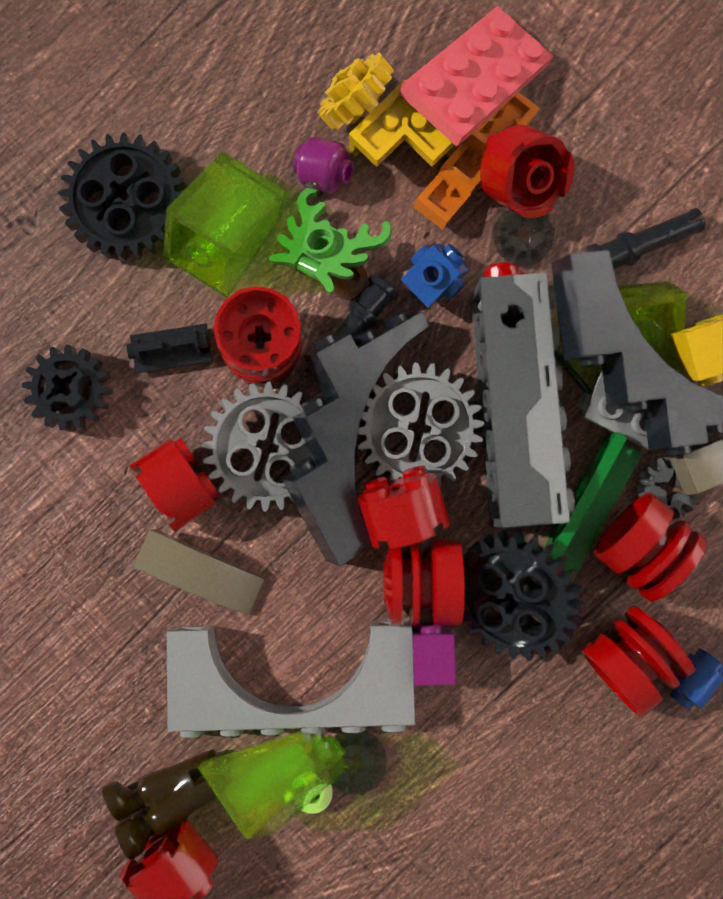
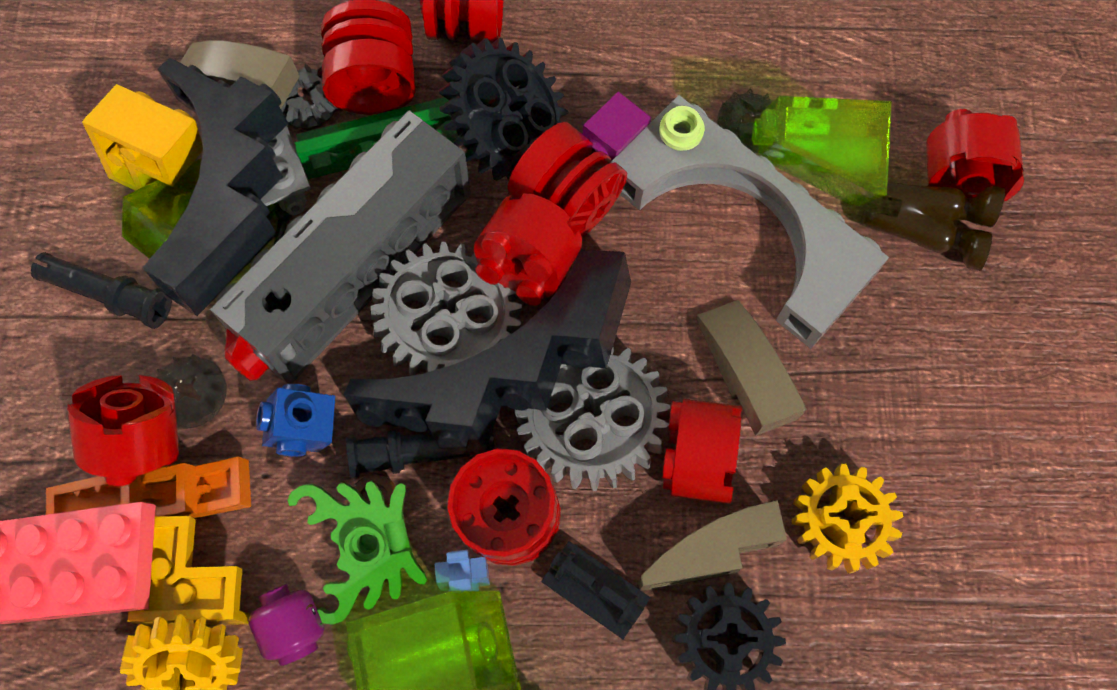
camera: 135 degrees left, 15 degrees down
(44, 517) = (847, 538): none -> yellow gear
(122, 434) = (716, 547): none -> dark tan slope
(248, 275) = (461, 572): none -> medium blue plate
(389, 707) = (685, 118): none -> yellowish green plate

